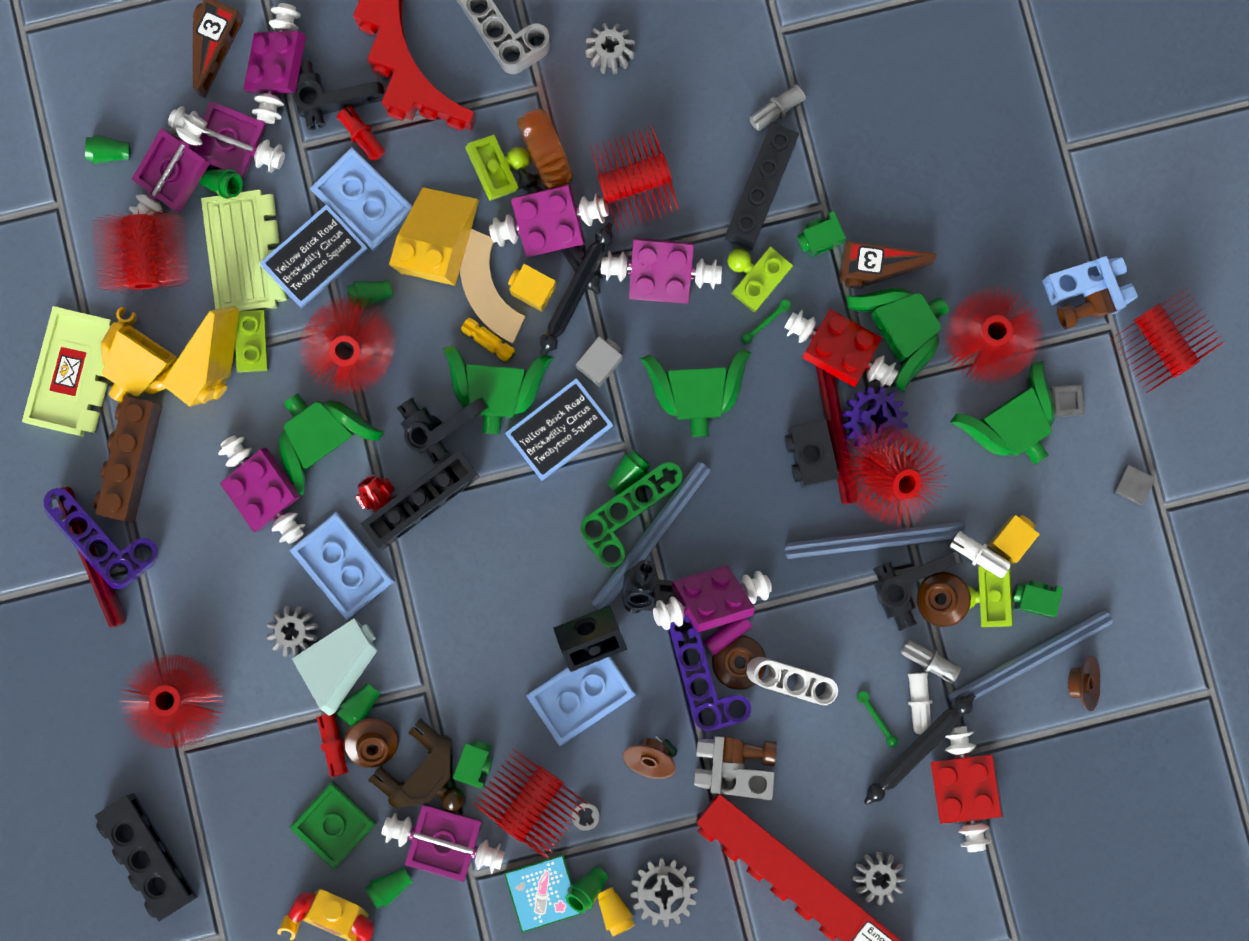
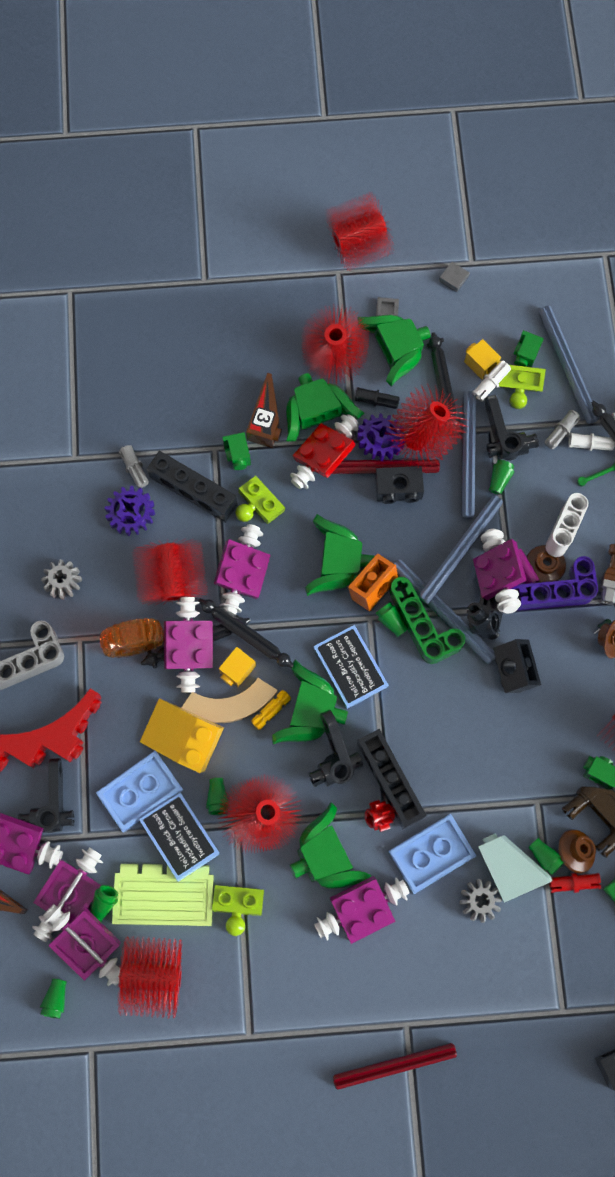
camera: 85 degrees left, 10 degrees down
(69, 374) = (237, 1061): yellowish green hinge -> none
(95, 535) = (378, 1056): dark purple beam -> none
(128, 459) = (320, 1018): reddish brown brick -> none
(133, 360) = (240, 997): yellow torso -> none
(162, 705) = (540, 1003): red piece -> none
(206, 360) = (260, 941): yellow slope -> none
(361, 133) = (86, 783): red axle -> none
(494, 168) = (136, 681): lime plate -> none
(580, 698) = (561, 687): light blue tile -> none
(600, 360) = (303, 625): light grey brick -> none
(670, 439) = (373, 582): none -> orange brick
(706, 106) = (124, 516): none -> dark purple gear
(737, 547) = (460, 549): none -> sand blue axle
(784, 306) = (284, 489): green hinge -> none
(848, 586) = (501, 475): none -> green cone
(931, 406) = (376, 398): none -> black axle
(957, 601) = (526, 405): reddish brown piece -> none
(975, 491) = (442, 374): none -> black wheel
(1085, 683) = (591, 331): reddish brown piece -> none
(1098, 286) = (310, 273): light blue hips -> none

